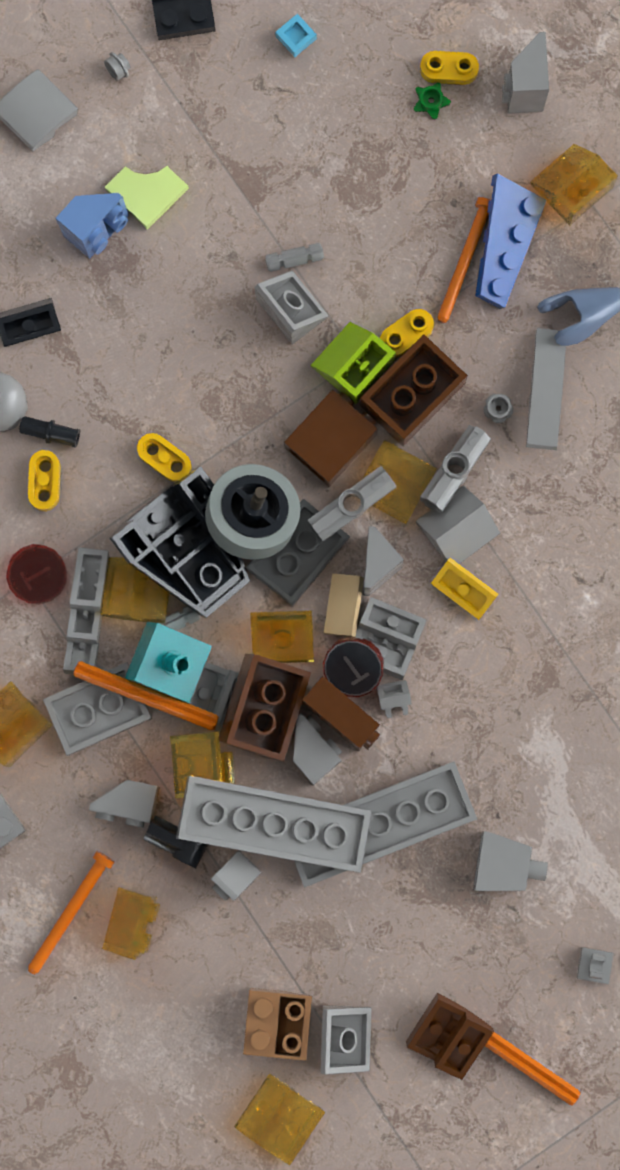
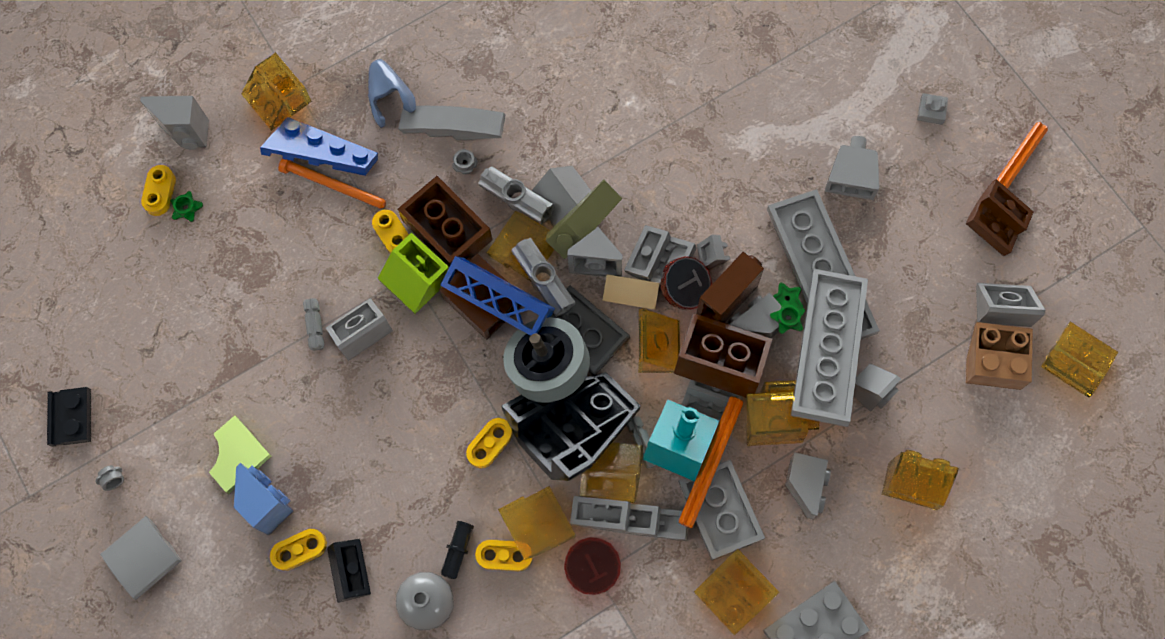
camera: 90 degrees left, 10 degrees down
(47, 269) = (299, 548): none -> yellow plate
(77, 512) = (537, 523): none -> clear yellow slope
(102, 861) = (908, 540): orange bar -> none
(163, 835) = (840, 443): black piece -> none
(296, 35) = (107, 315): medium azure plate -> none
(315, 788) = (788, 310): none -> green plate
(332, 455) = (501, 286): none -> blue fence
(350, 780) = (792, 293): none -> green plate
(418, 543) = (583, 218): none -> olive slope
(464, 588) = (627, 185): yellow plate -> none

